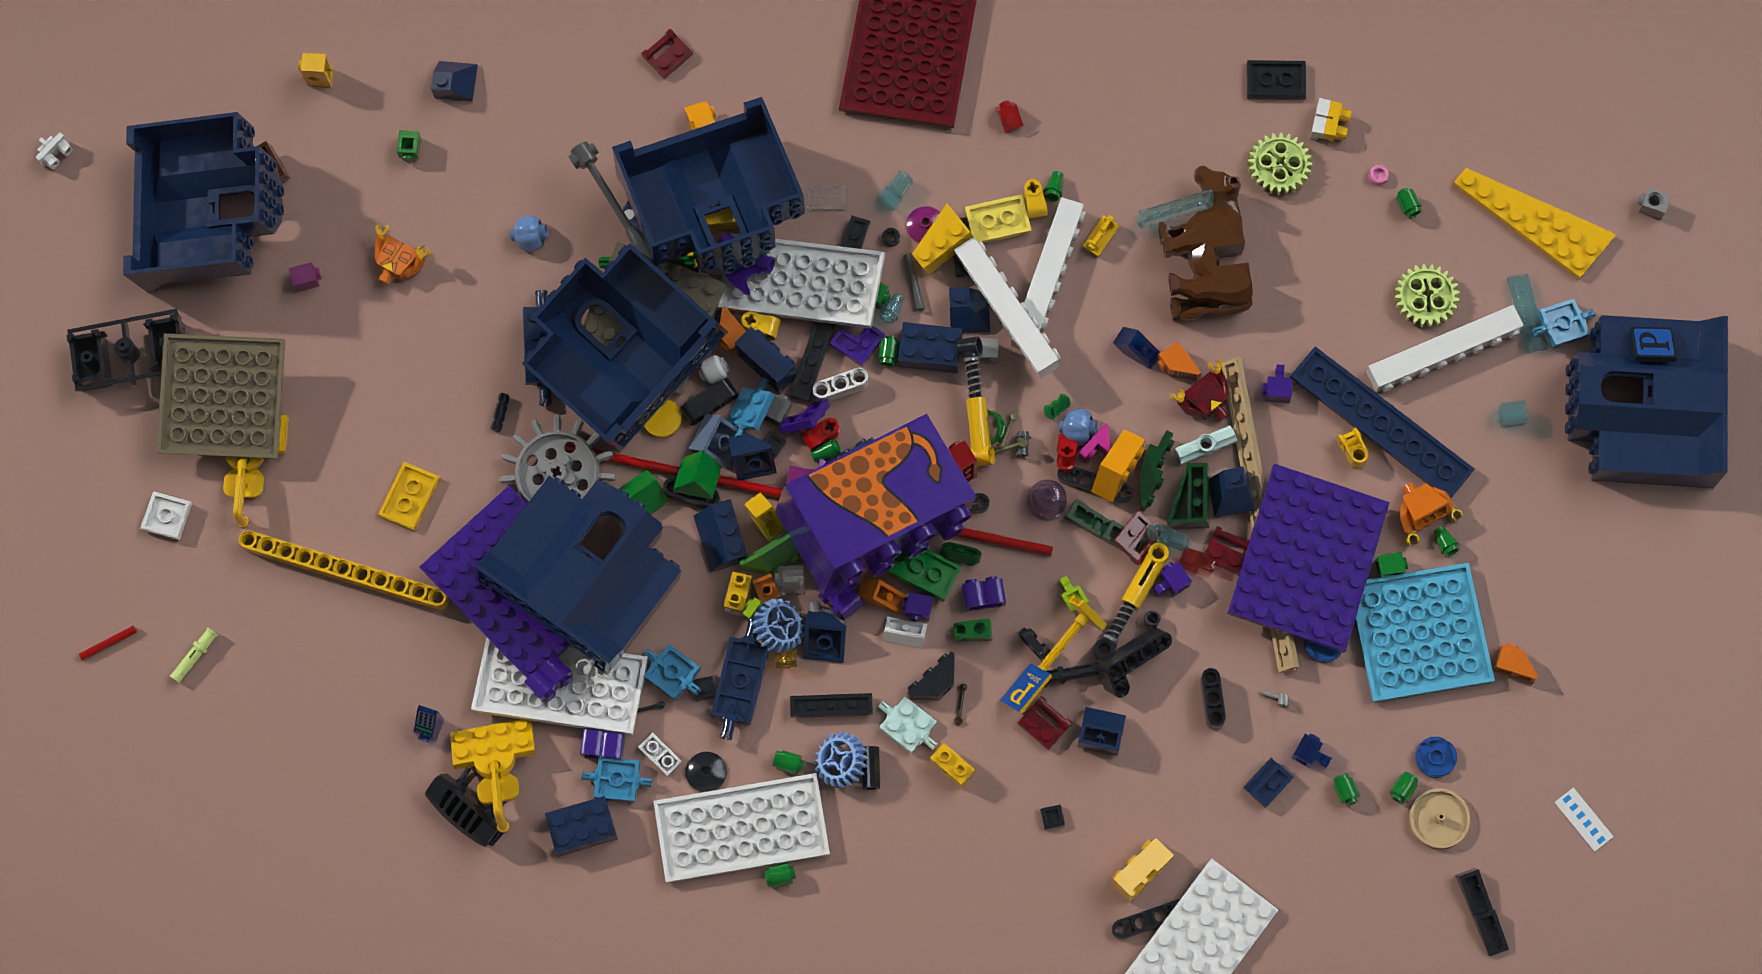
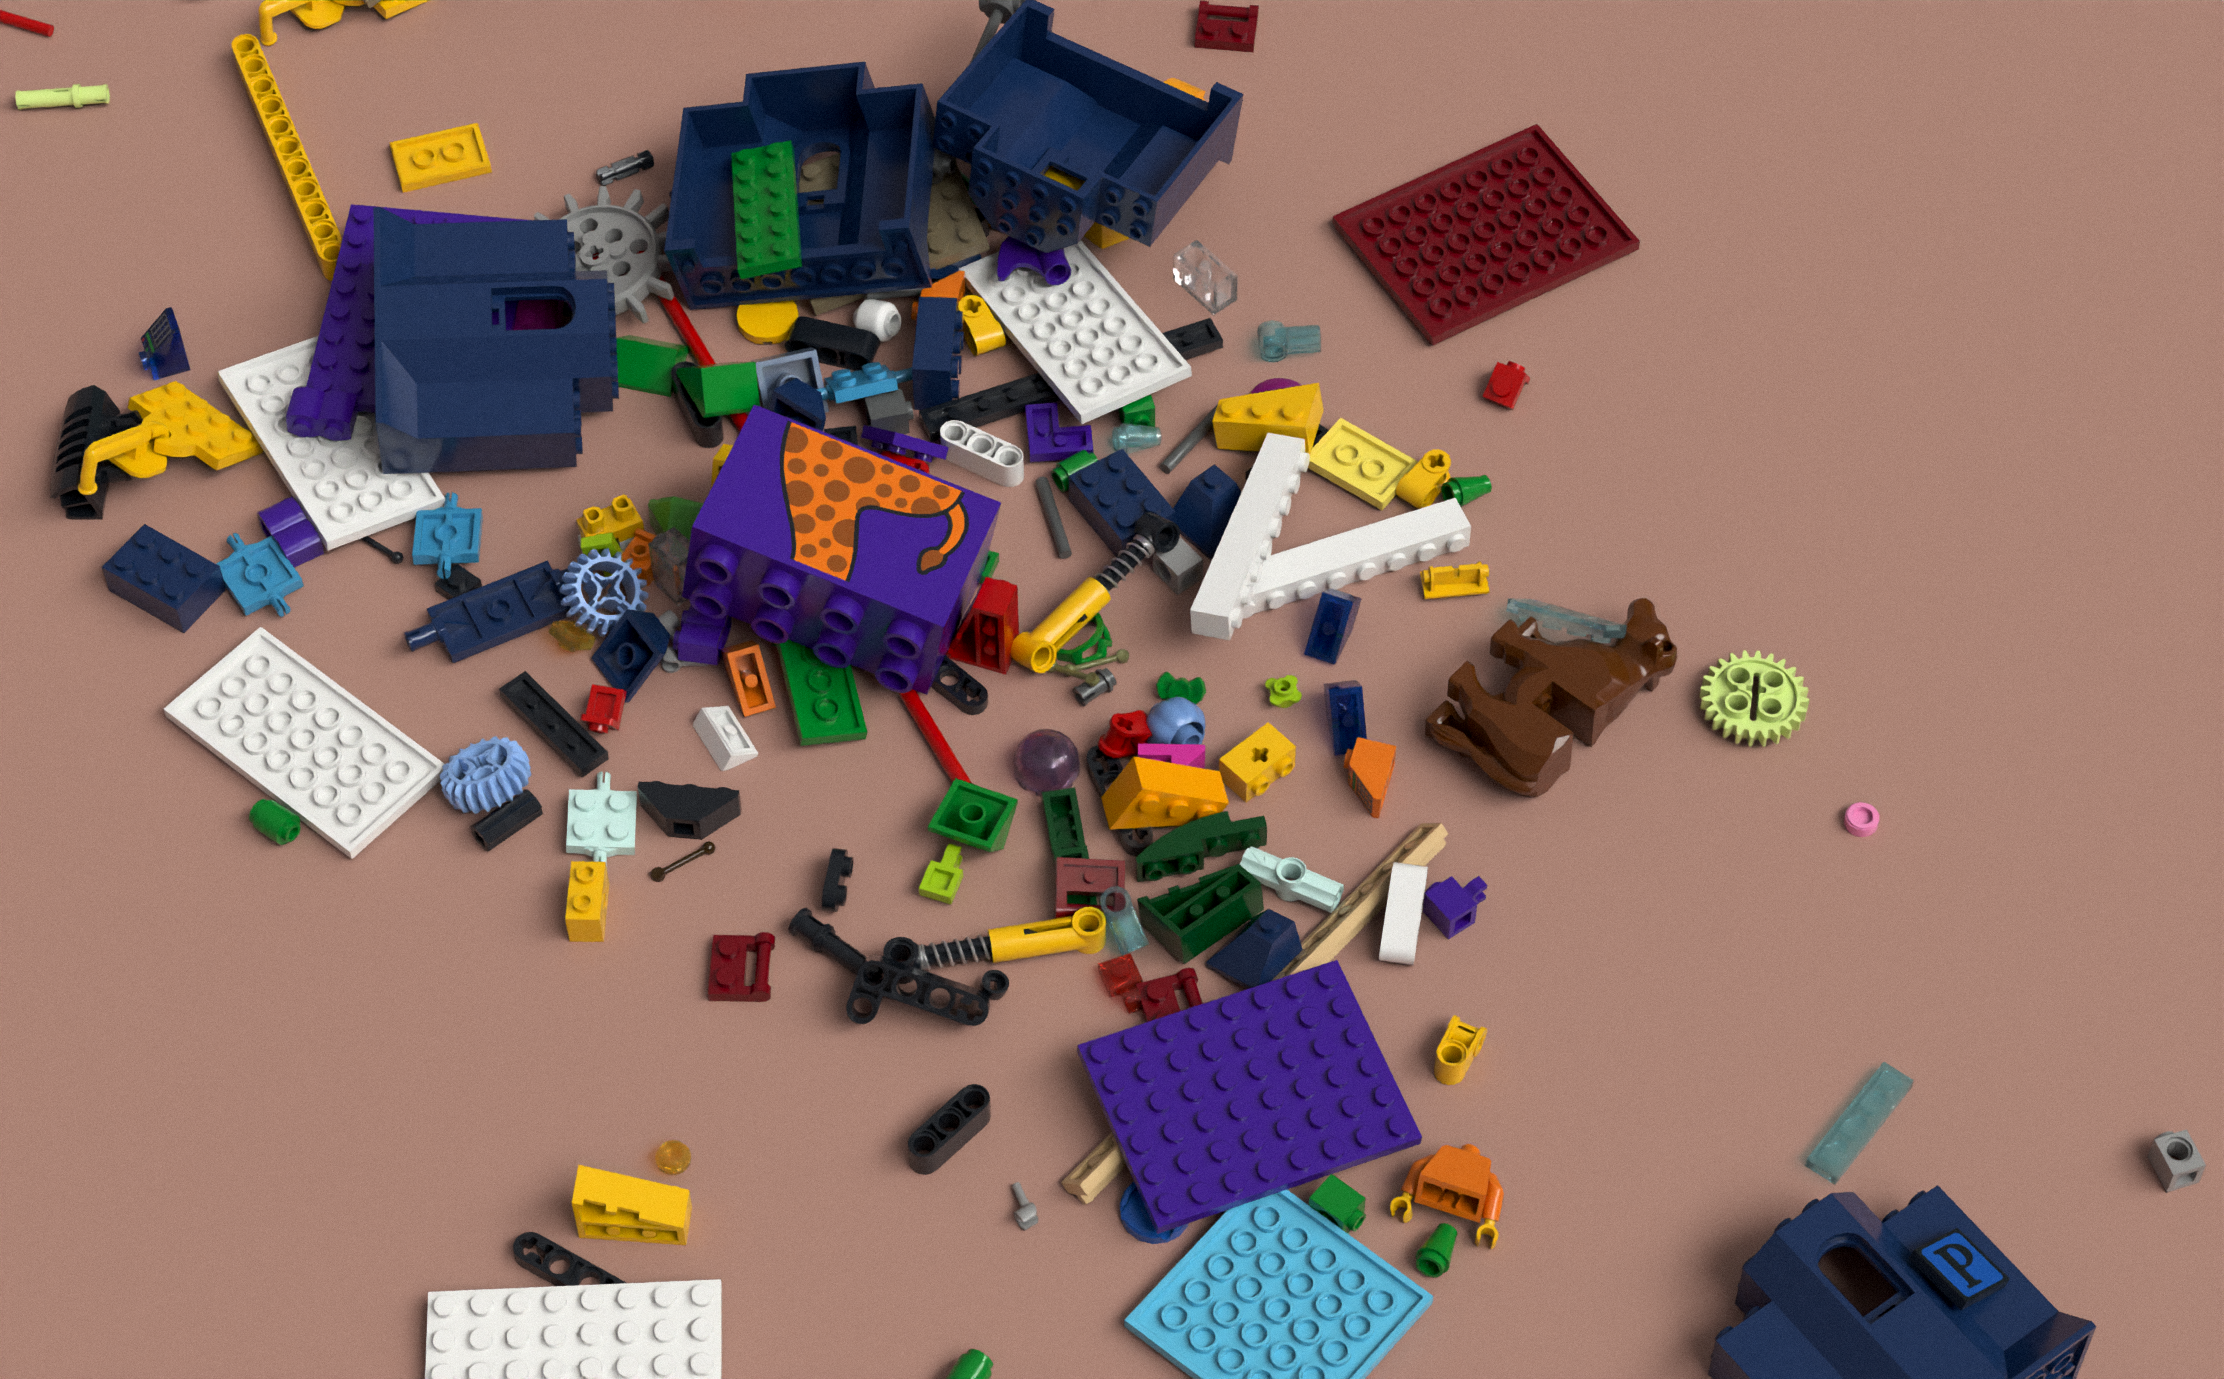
camera: 45 degrees right, 20 degrees down
(528, 233) = (872, 43): medium blue plant -> none
(618, 373) = (766, 210): none -> green plate
(659, 754) = (331, 596): white slope -> none
(710, 781) = (355, 670): black dish -> none
(720, 536) = (675, 466): dark blue slope -> none
(788, 762) = (435, 728): green brick -> none
(844, 676) = (604, 709): none -> red bracket
(885, 238) = (1226, 387): black bush -> none
(905, 383) = (1053, 517): none -> dark grey bar
(917, 607) = (769, 724): dark purple brick -> none
(961, 553) = (883, 720): dark green plate -> none
(973, 630) = (794, 804): green leg -> none
(983, 593) = (852, 780): dark purple brick -> none
(1034, 677) = (920, 899): yellow piece -> none
(1052, 816) = (620, 1065): black tile -> none
(1056, 557) = (974, 816): none -> green slope
(1081, 310) = (1332, 625): none -> clear blue slope
(1098, 368) = (1286, 698): none -> lime plate
(1101, 731) = (784, 1031): dark blue slope -> none
(1124, 830) = (673, 1157): none -> clear yellow plate
(1125, 417) = (1257, 762): none -> yellow brick
(1173, 579) = (1071, 973): dark purple brick -> none
(1206, 395) = (1357, 832): dark red torso -> none
(1268, 413) = (1403, 913): none -> white beam
(1268, 782) = (892, 1277): dark blue plate -> none
(1276, 79) = (1862, 622): black tile -> none
(1309, 750) = (981, 1294): clear blue brick -> none
(1326, 121) = (1868, 709): yellow hips -> none
(1381, 422) = (1526, 1061): dark blue plate -> none
(1408, 202) = (1859, 874): green brick -> none
(1408, 296) = (1732, 965): yellowish green gear -> none
(1445, 348) = (1705, 1057): white brick -> none
(1512, 414) = (1697, 1200): clear light blue brick -> none
(1556, 233) = (2006, 1075): yellow wing -> none
(1563, 322) = (1886, 1167): dark azure plate -> none

